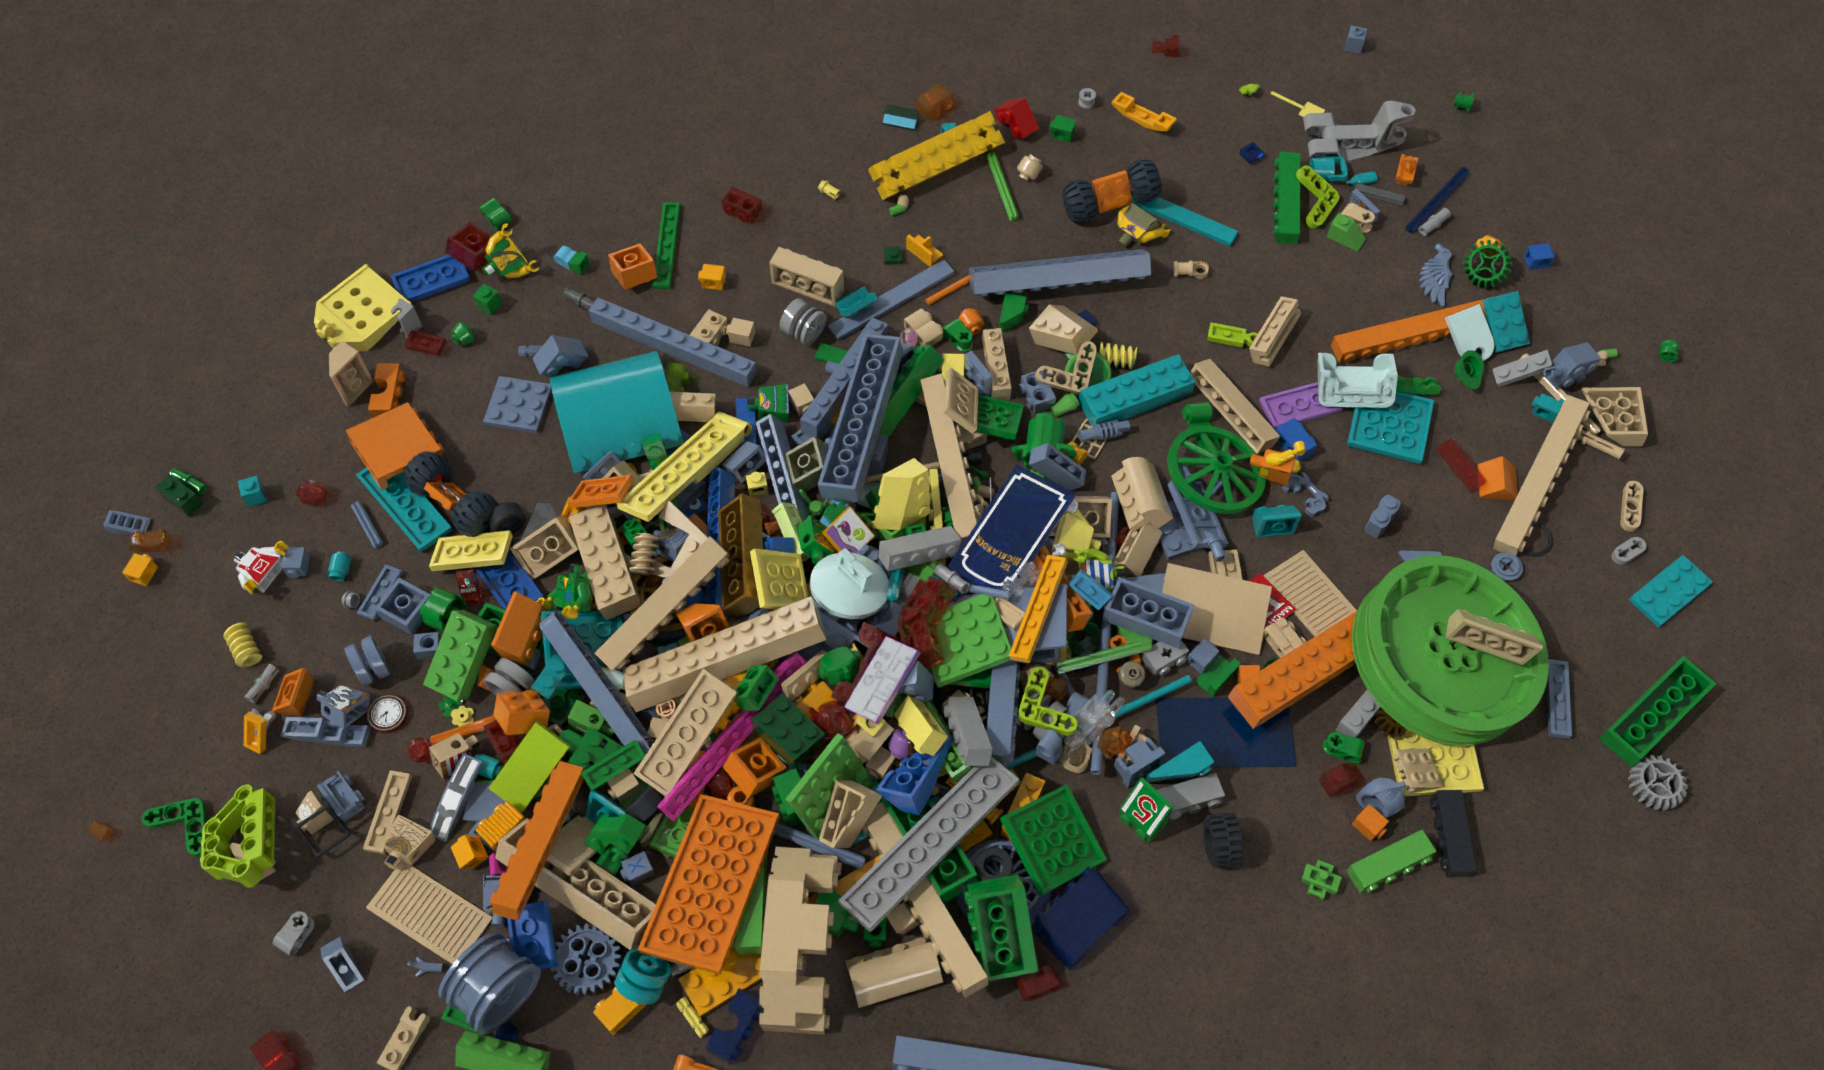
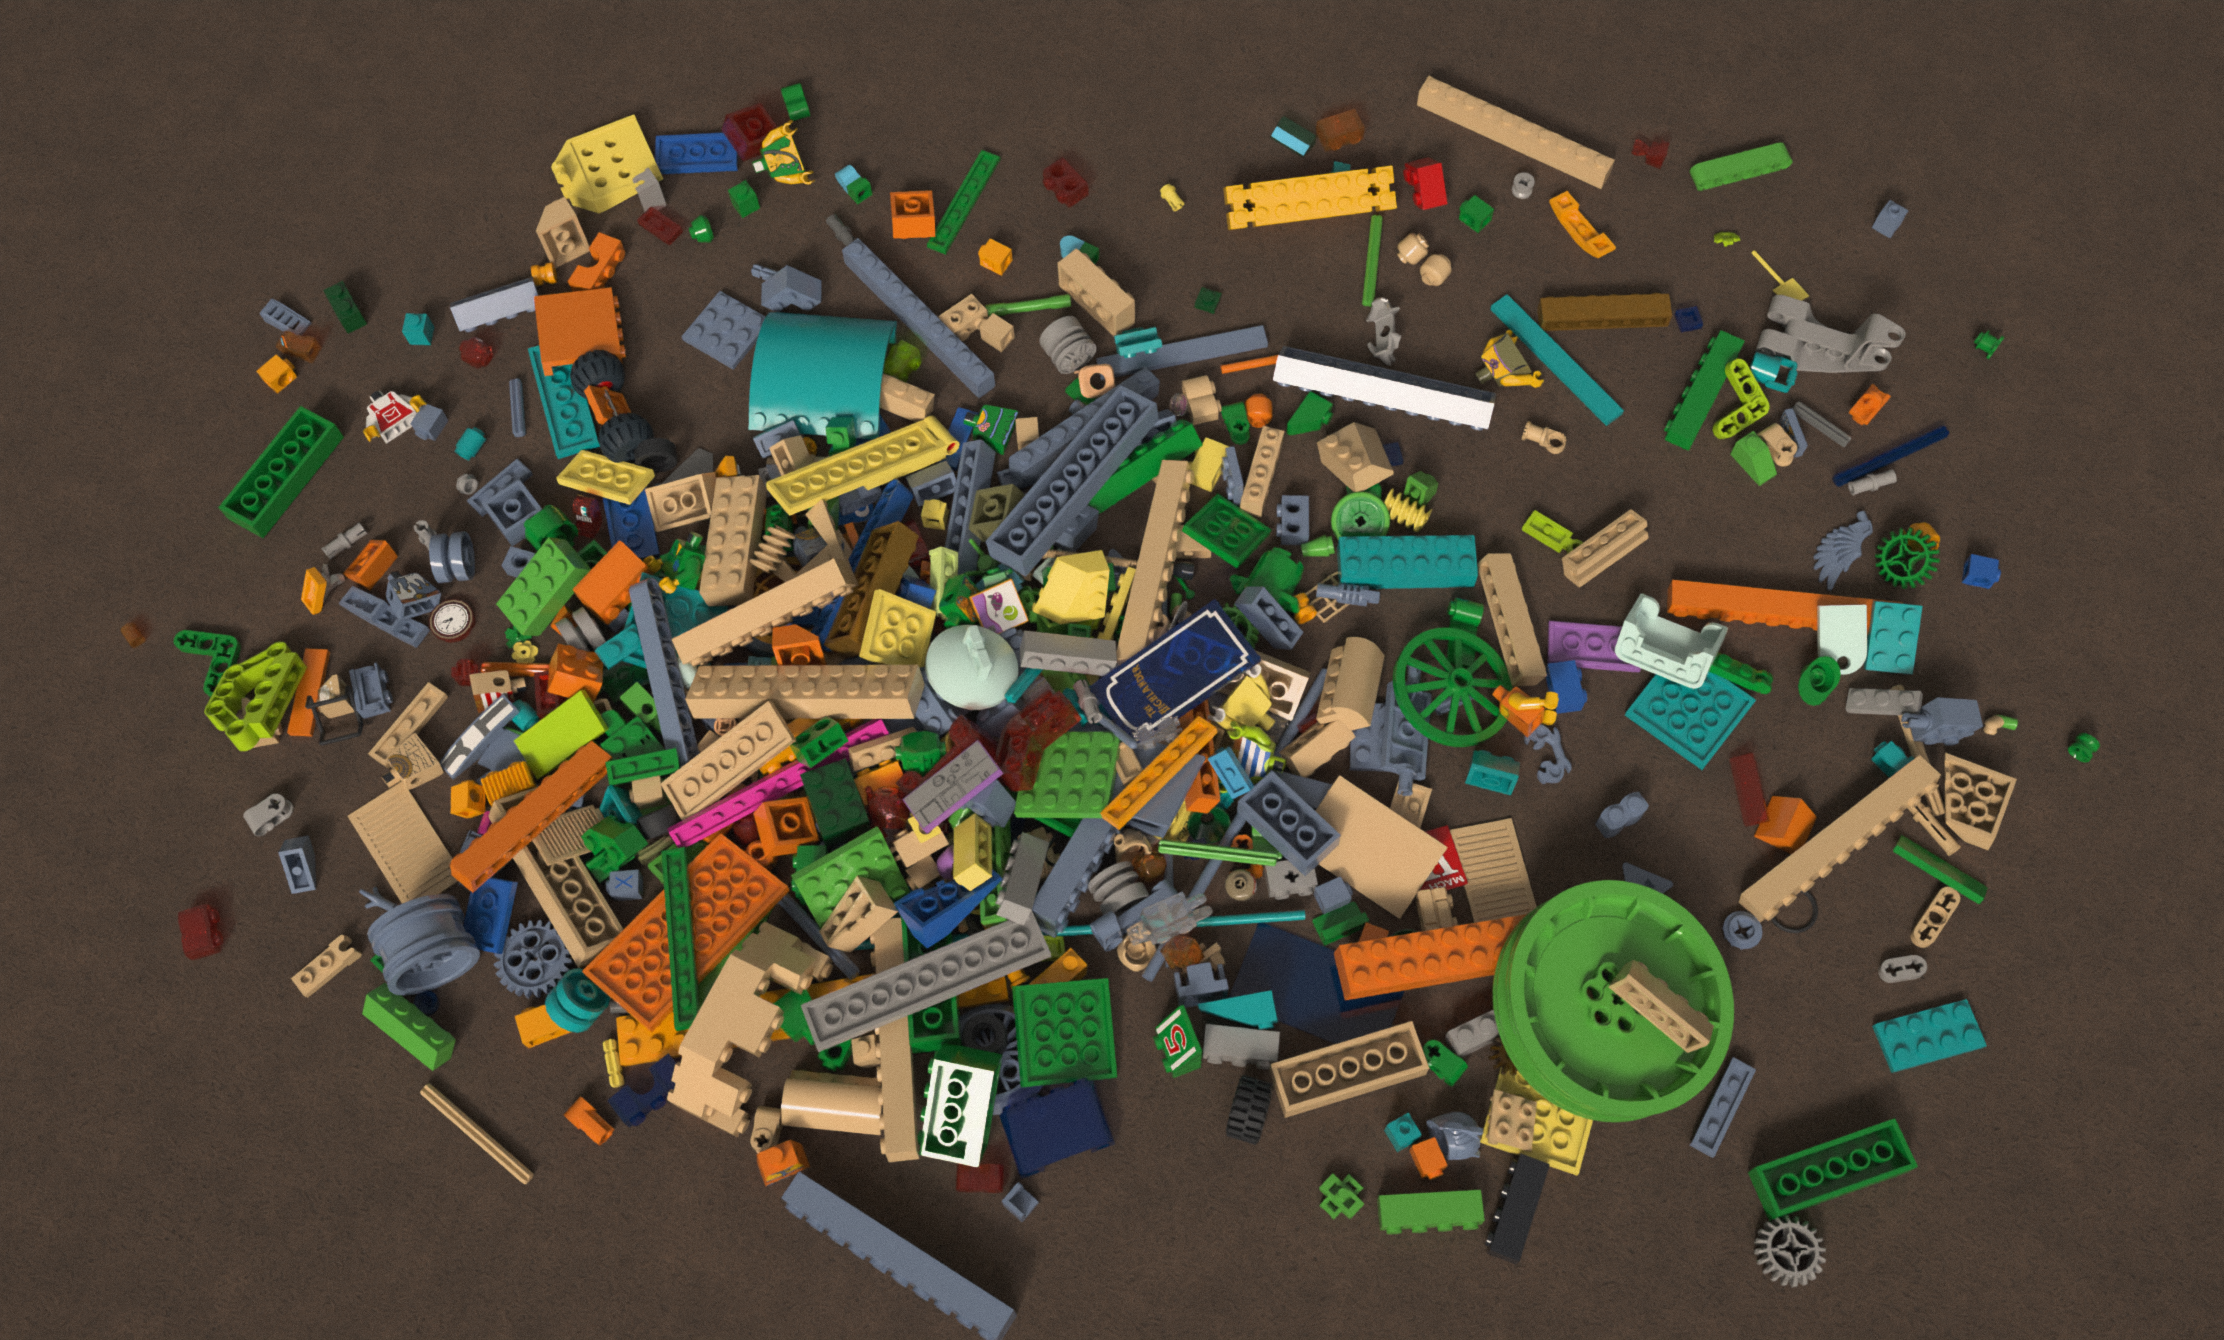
camera: 25 degrees right, 5 degrees up
(181, 647) = (281, 472): none -> green brick
(188, 480) = (361, 294): green pin -> none
(241, 645) = (340, 492): light yellow piece -> none
(287, 835) = (302, 719): none -> orange tile
(312, 449) = (494, 304): none -> brick
(337, 651) = (424, 532): none -> light grey pin
(342, 412) = (544, 273): none -> light orange wheel
(601, 491) = (759, 462): orange tile -> none
(711, 890) = (680, 937): none -> green tile
(744, 310) = (1053, 302): none -> bright green piece
(768, 249) = (1070, 243): none -> leg
(828, 341) = (1084, 379): none -> light nougat piece
(847, 1014) = (766, 1125): none -> tan piece
(871, 1038) = (782, 1161): none -> orange torso
(901, 206) = (1245, 244): arm -> none
(923, 249) = (1246, 306): light orange panel -> none
(961, 400) = (1194, 501): tan tile -> none
(1030, 222) = (1383, 315): none -> light grey piece
(1038, 711) = (1110, 887): lime beam -> none
(1053, 176) = (1435, 269): none -> tan head
(1063, 63) = (1515, 132): none -> tan brick
(1071, 378) = (1335, 518): tan beam -> none
(1078, 989) = (1019, 1202): none -> sand blue panel
(1112, 191) = (1491, 311): black plate -> none
(1121, 335) = (1420, 488): none -> bright green slope
(1198, 164) = (1604, 312): none -> pearl gold brick
(1234, 36) = (1740, 165): none -> bright green beam
(1280, 780) = (1348, 1069): none -> tan brick
(1340, 778) = (1422, 1095): clear red slope -> none
(1342, 811) = (1402, 1132): none -> teal brick
(1363, 178) = (1811, 398): teal piece -> none
(1618, 471) = (1940, 869): none -> green tile

